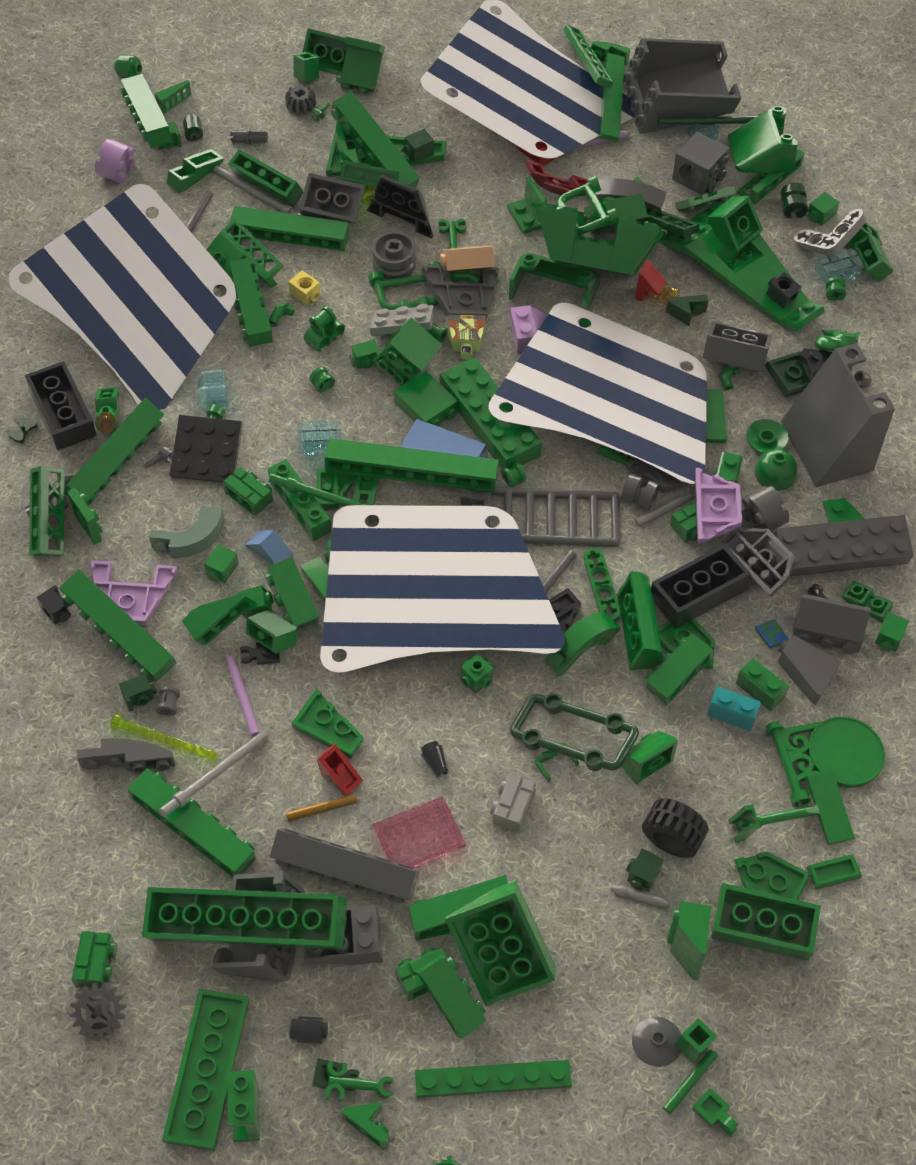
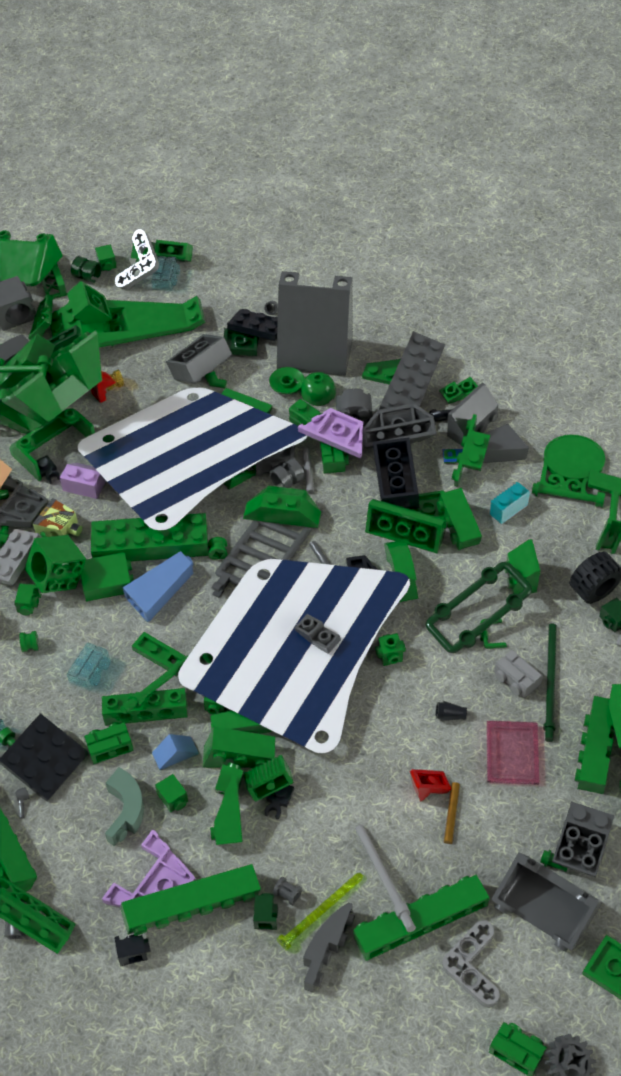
camera: 60 degrees left, 5 degrees down
(85, 516) = (54, 882): green plate -> none
(167, 879) = (464, 960): none -> light grey beam
(242, 695) = (314, 831): lavender bar -> none
(245, 918) = (545, 902): green brick -> none
(323, 723) = (378, 777): green wing -> none
(333, 483) = (141, 675): green wing -> none
(345, 864) = (517, 813): dark grey brick -> none
(411, 465) = (166, 611): green brick -> none
(447, 597) = (317, 634): none -> dark grey slope
(468, 858) = (549, 725): none -> dark green bar
(525, 295) = (47, 468): none -> black plate
(596, 507) = (283, 507): none -> green wedge
(601, 586) = (354, 534): green beam -> none
(683, 307) = (136, 374): dark green slope -> none
(762, 684) = (497, 477): green brick -> none
(775, 642) = (474, 450): none -> green bracket
(783, 290) = (167, 309): black brick -> none
(835, 288) = (183, 284): green wheel -> none
(835, 339) = (231, 304): green animal -> none
(891, 632) = (497, 386): green brick -> none

